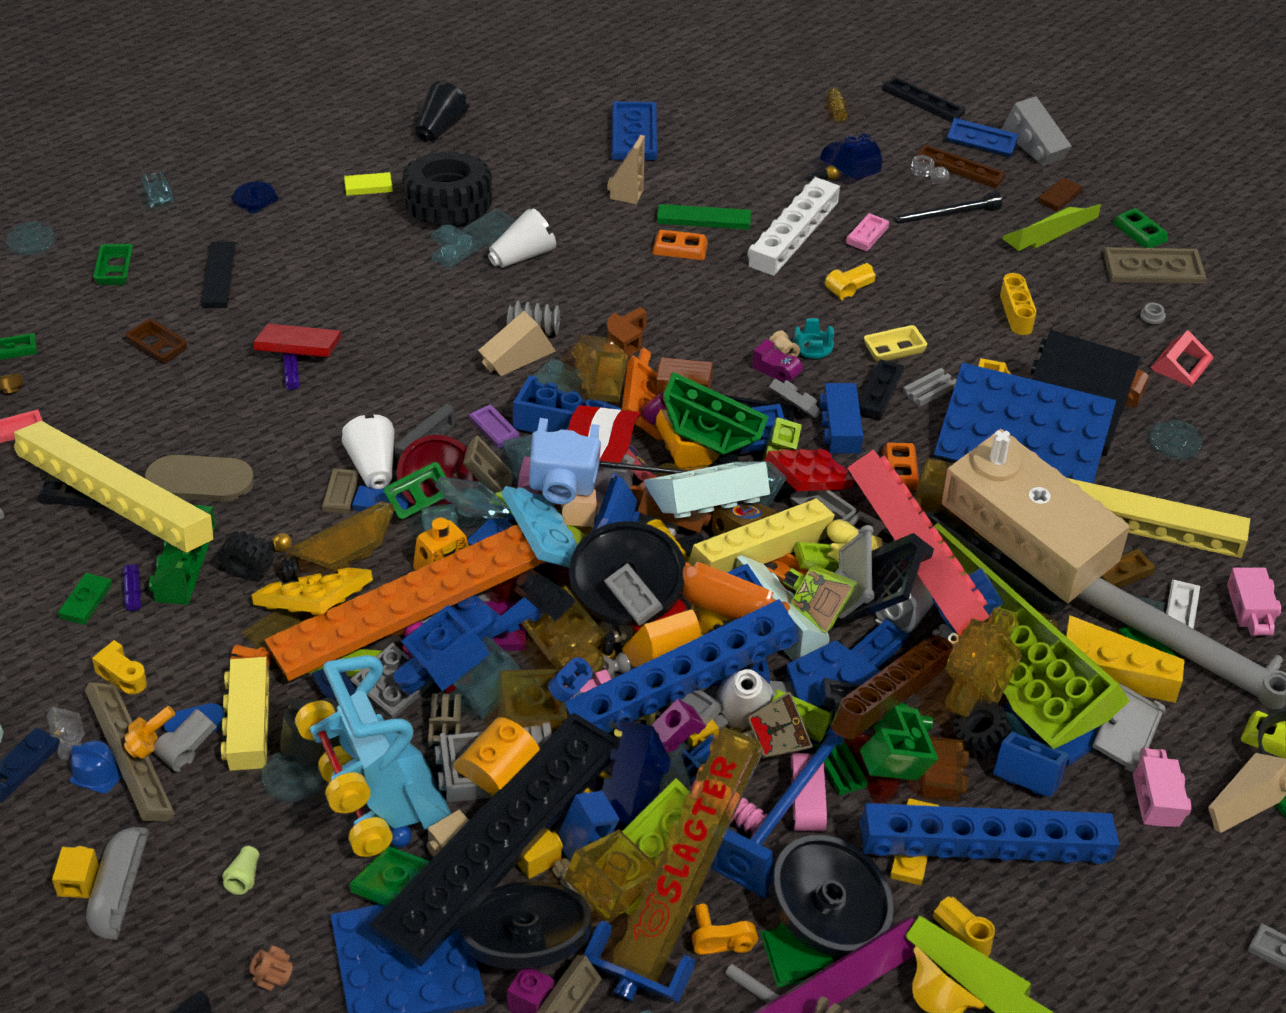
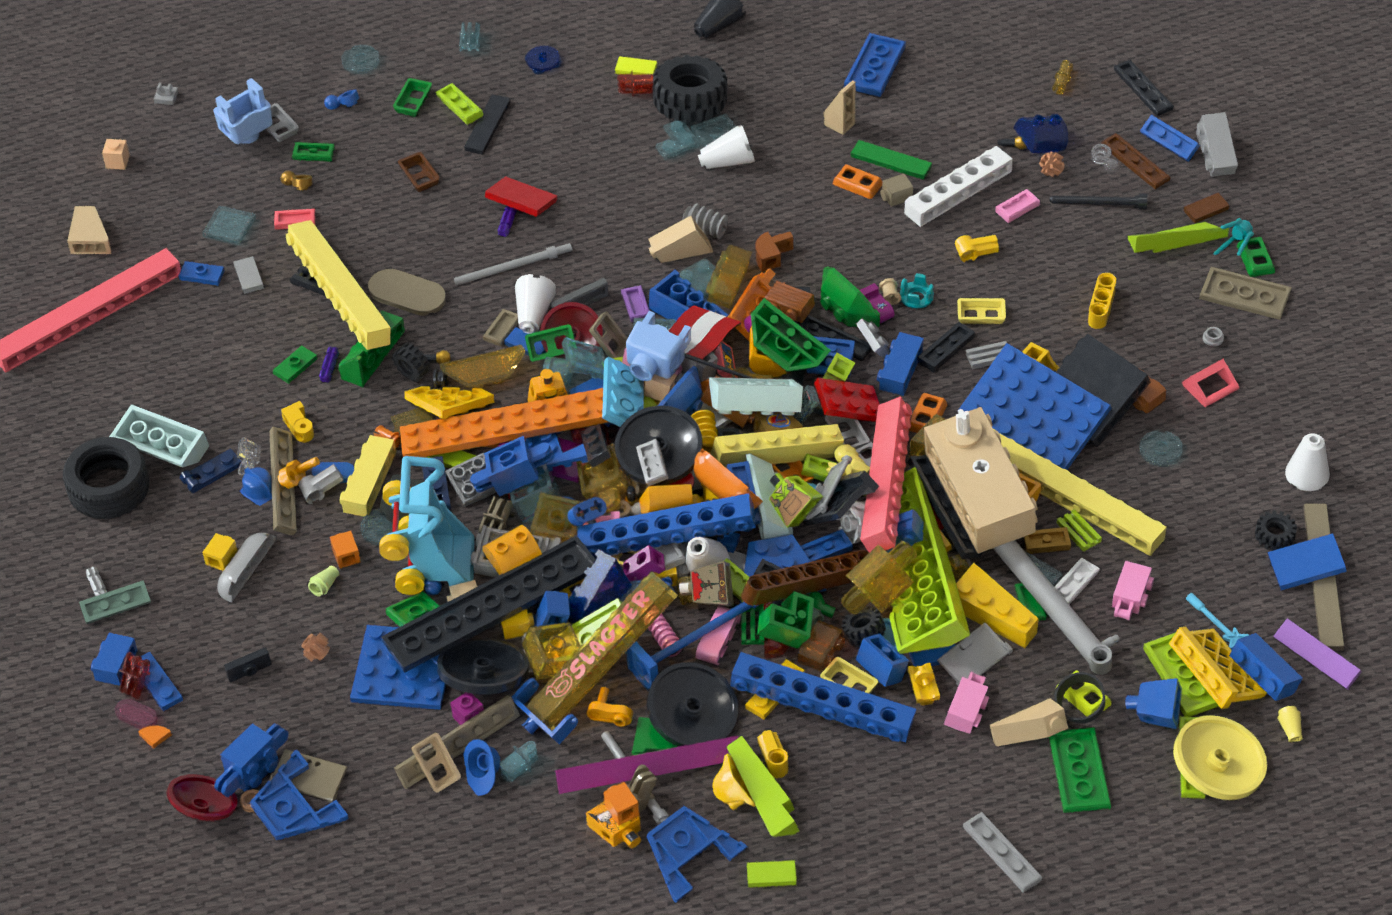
camera: 25 degrees right, 5 degrees up
(32, 281) = (348, 98): none -> blue plate
(176, 259) = (459, 103): none -> lime tile
(256, 818) = (345, 549): none -> orange brick
(361, 393) = (550, 252): none -> light grey bar
(378, 198) = (635, 83): none -> clear red arm
(731, 243) = (896, 190): none -> dark tan brick
(742, 361) = (845, 300): none -> green wedge
(880, 184) = (1052, 164): none -> nougat gear
(1000, 793) = (854, 674): none -> light yellow piece
(1096, 778) = (924, 684): none -> yellow hips
(1113, 207) = (1241, 230): none -> teal plant
(1159, 553) = (1073, 519): none -> lime tile

